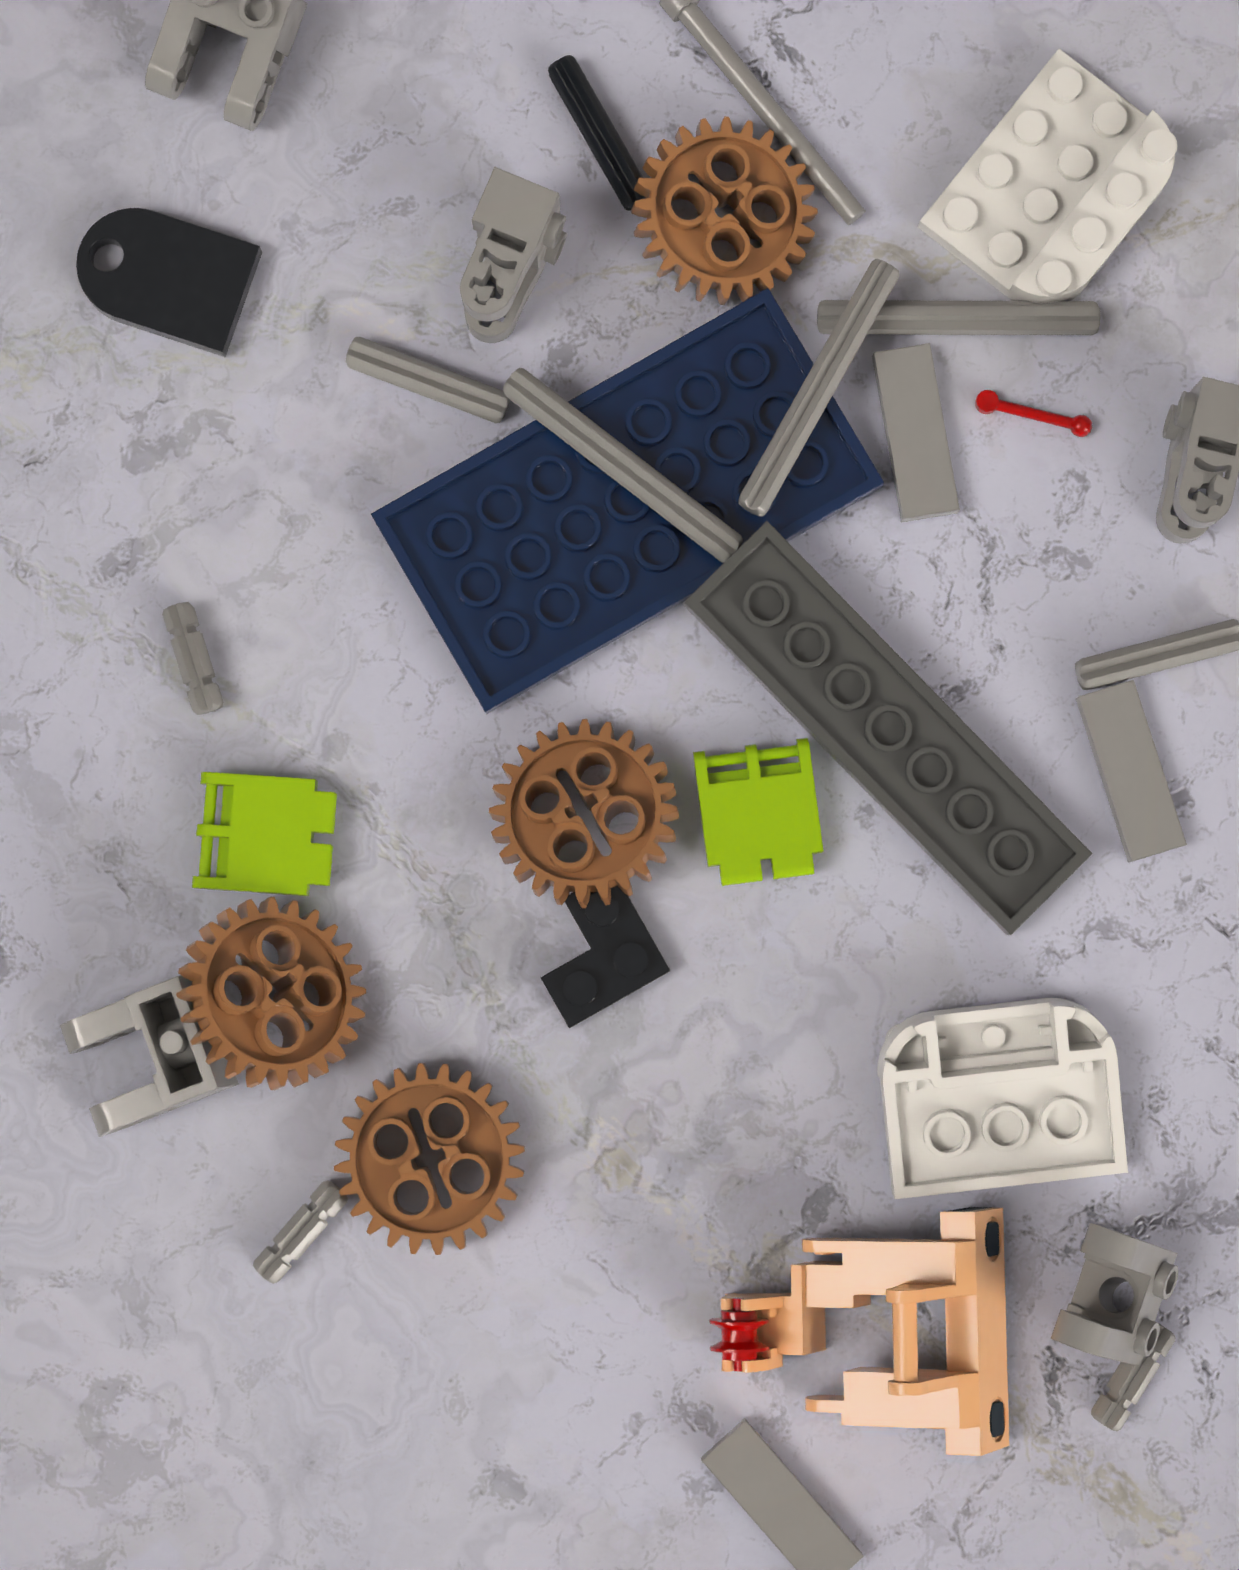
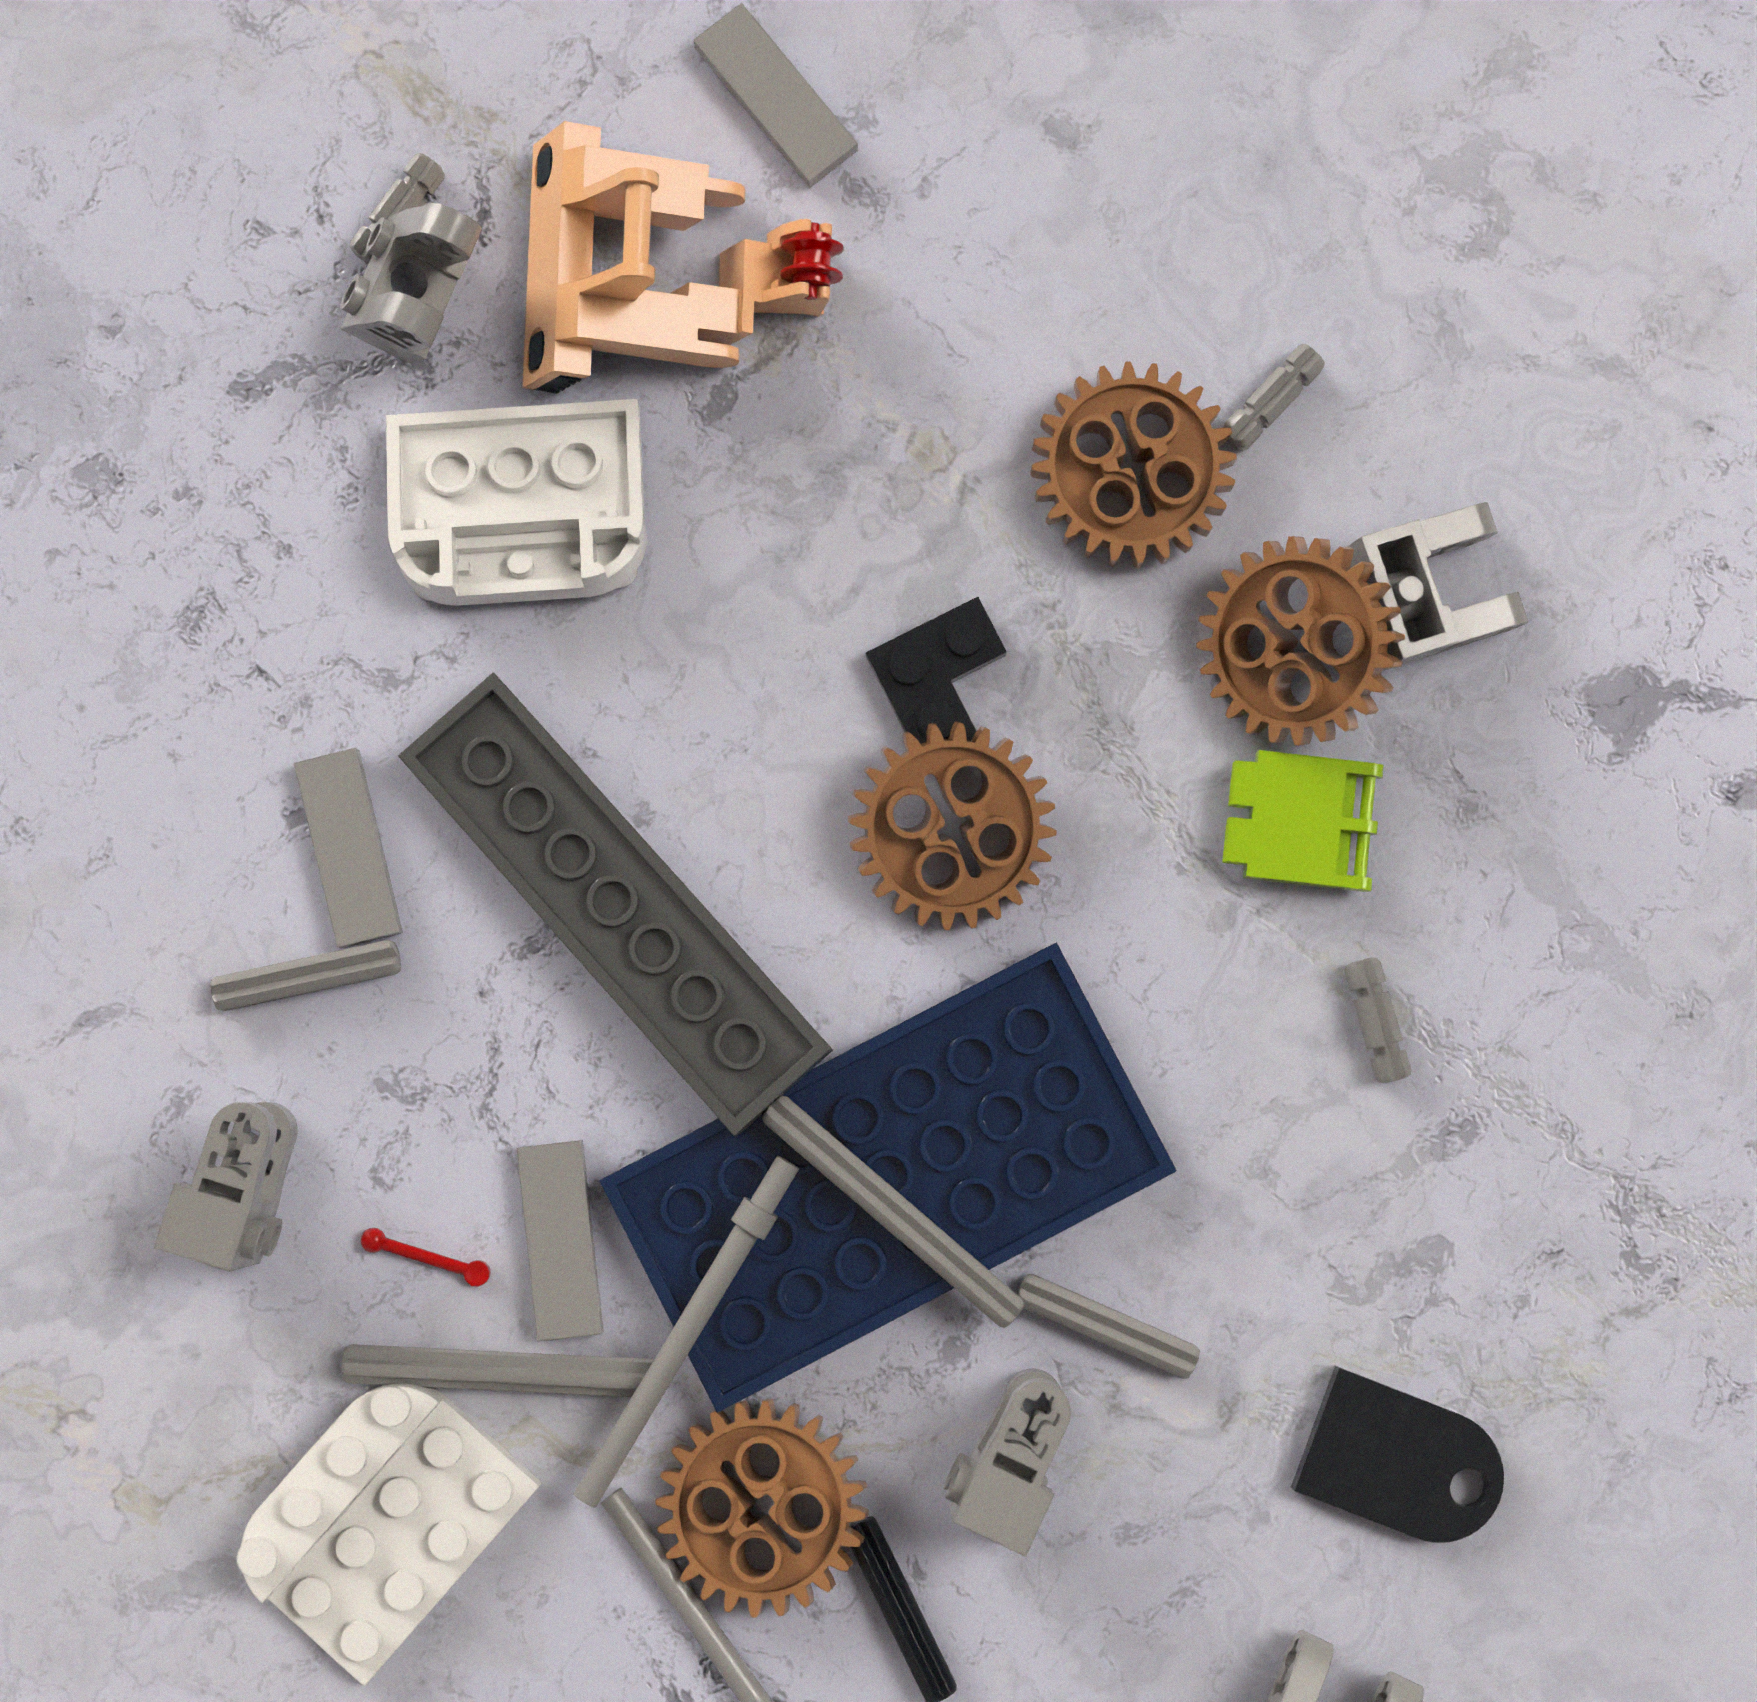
camera: 175 degrees left, 0 degrees up
(747, 448) = (753, 1221): none -> light grey bar
(759, 813) = (759, 819): lime plate -> none
(818, 387) = (665, 1292): light grey axle -> none

